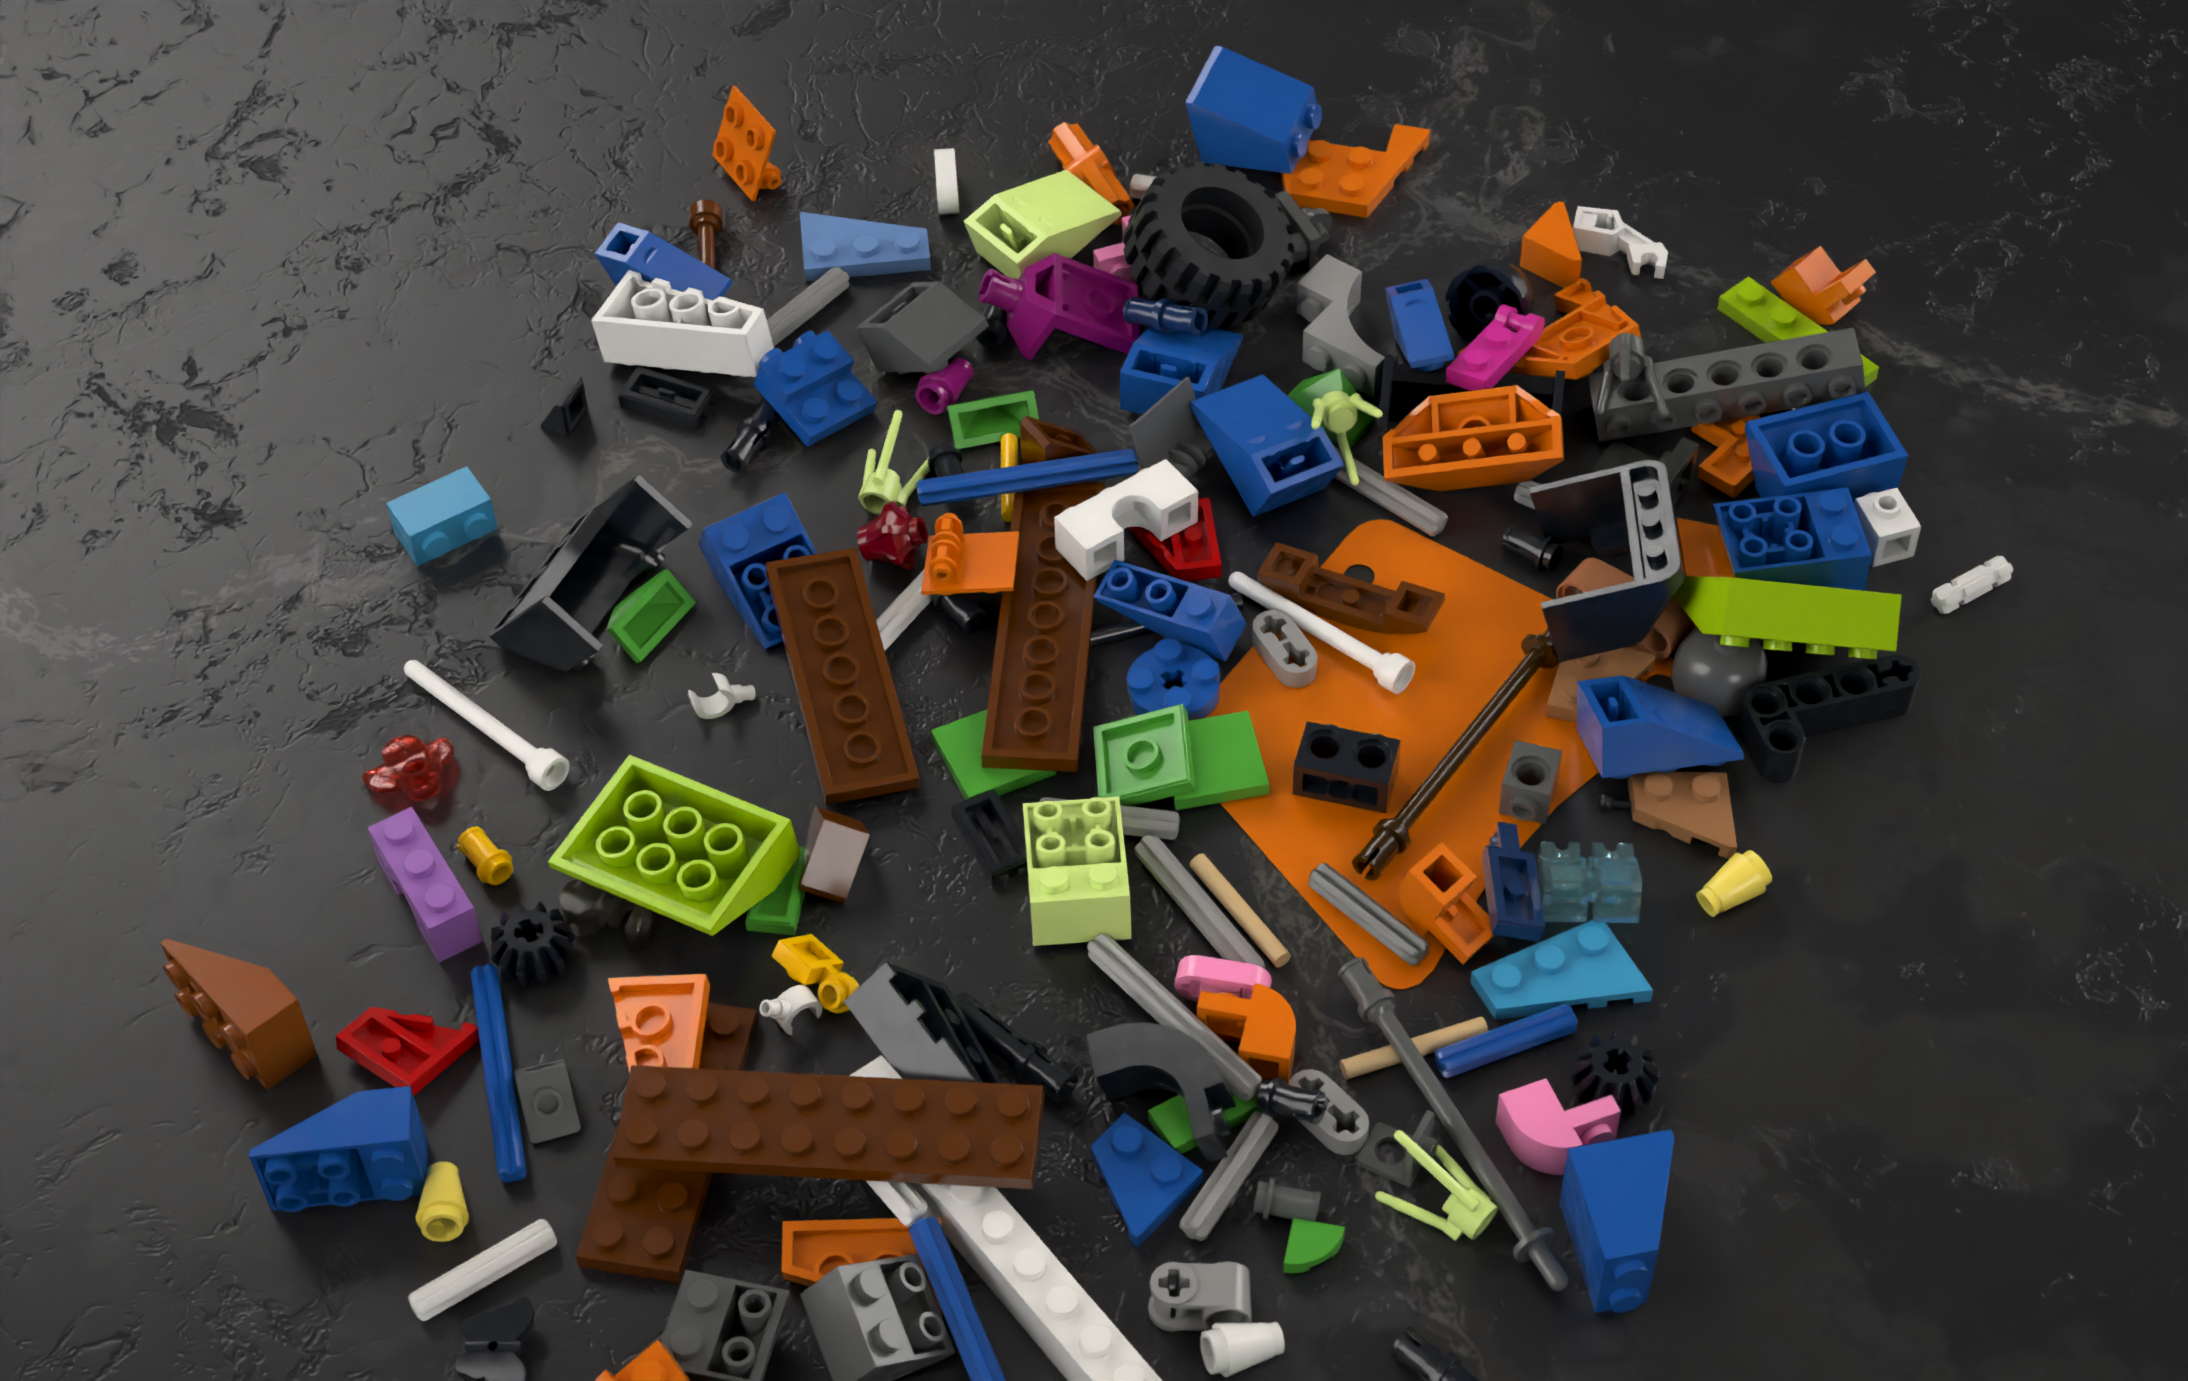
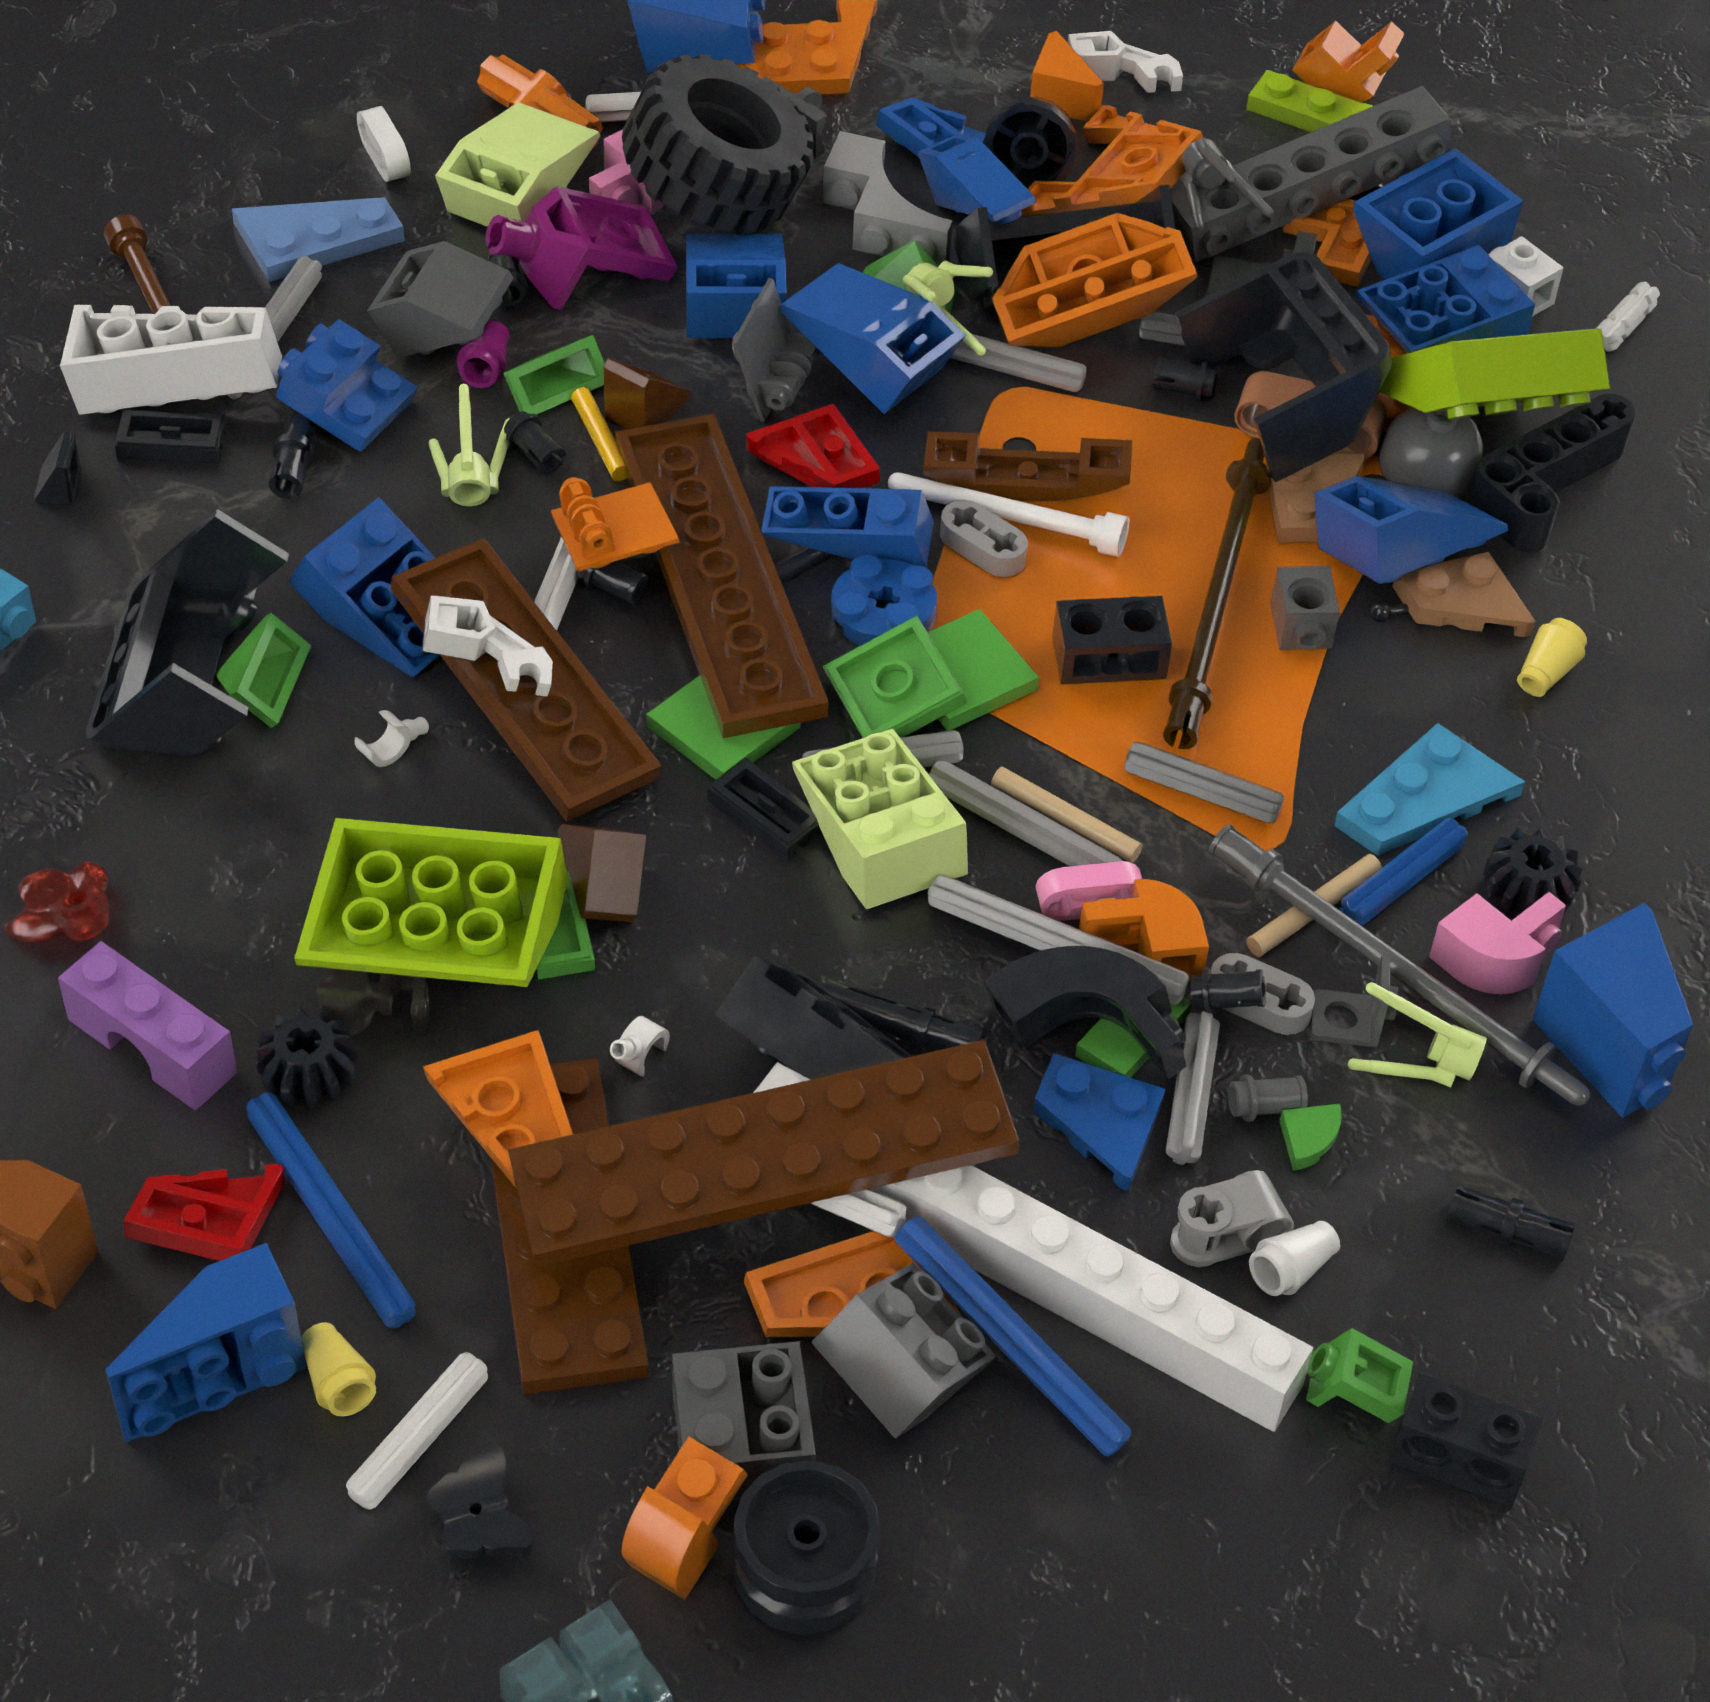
camera: 25 degrees left, 0 degrees up
(492, 864) = (212, 983): yellow pin -> none
(544, 766) = (224, 862): white piece -> none
(547, 1101) = (405, 1221): dark grey bracket -> none
(654, 258) = (81, 280): blue slope -> none
(745, 146) = (142, 148): orange hinge -> none
(812, 962) = (639, 992): yellow plate -> none
(832, 651) = (487, 635): none -> white piece
(893, 536) = (510, 520): dark red rock -> none
(1027, 477) = (630, 425): blue axle -> none
(1153, 499) = (741, 457): white arch -> none
(1165, 315) = (703, 226): dark blue pin -> none
(1410, 260) = (921, 124): none -> blue wing
(1437, 902) = (1279, 751): orange brick -> none
(1495, 350) = (1065, 188): dark pink plate -> none
(1512, 886) = (1340, 714): dark blue hinge -> none
(1609, 882) = (1414, 691): clear light blue legs -> none

